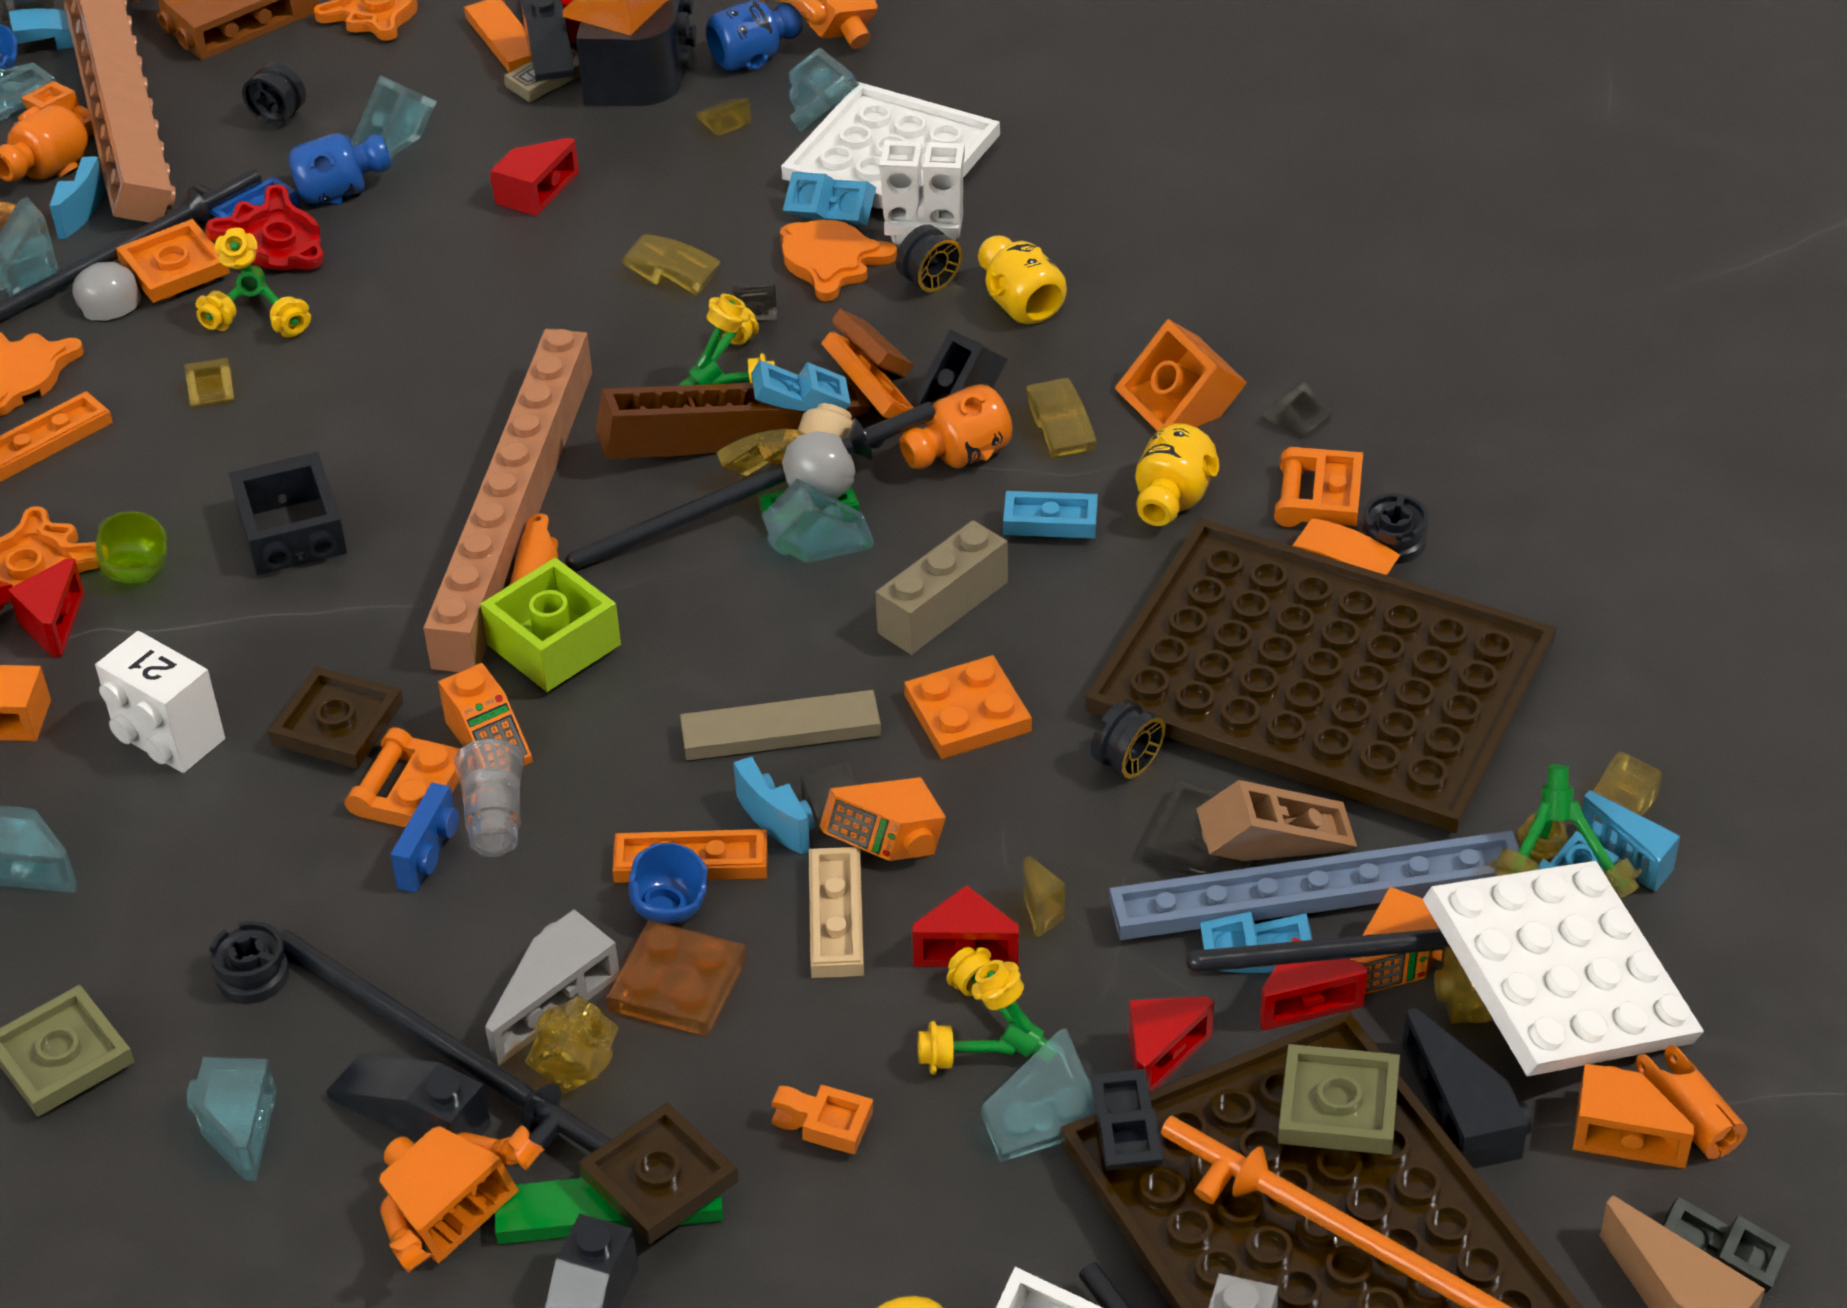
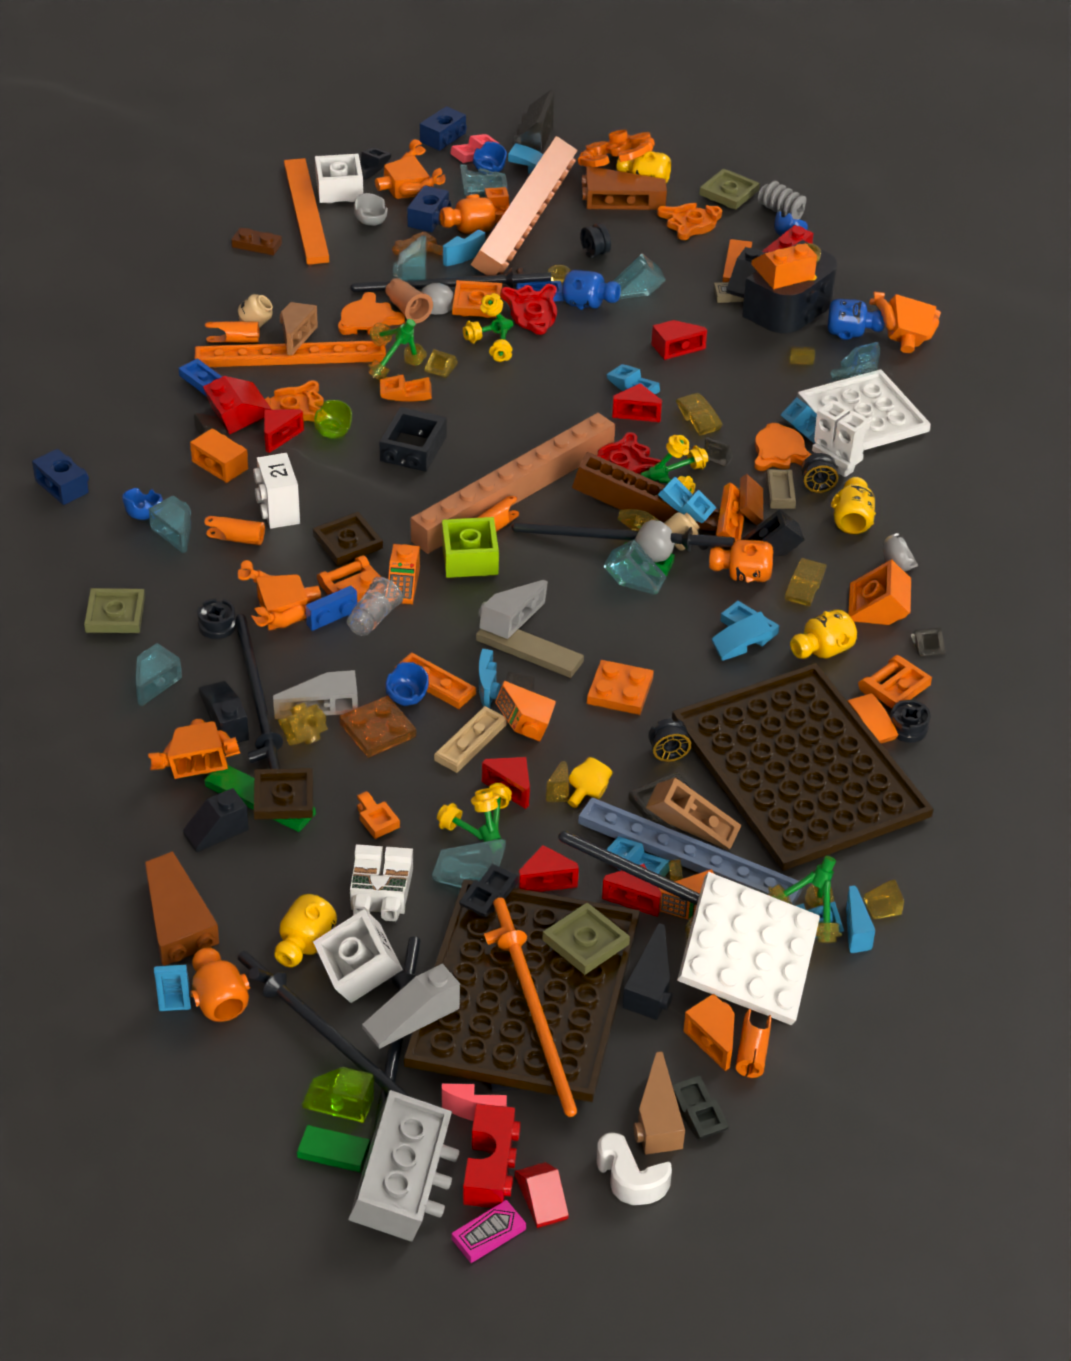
camera: 35 degrees right, 0 degrees up
(68, 311) = (409, 300): none -> nougat plant
(136, 805) = (235, 530): none -> orange piece
(155, 388) = (382, 334): none -> plant
(205, 443) = (398, 389): none -> orange slope
(264, 162) = (559, 272): none -> clear yellow tile
(325, 868) = (280, 597): none -> orange torso
(520, 268) = (627, 377): none -> dark azure slope
(577, 292) = (637, 404): none -> red slope
(630, 367) = (628, 454): none -> red tile
(708, 683) = (512, 608): none -> light grey slope
(889, 310) = (781, 489): none -> dark tan tile
(941, 1215) = (381, 892): none -> white hips
(942, 587) = (660, 627): dark tan brick -> none
(1065, 536) = (736, 637): none -> dark azure slope
(1080, 863) = (589, 779): none -> yellow piece
(1143, 311) = (898, 551): none -> light grey hair
(1334, 921) = (675, 870): none -> clear yellow tile

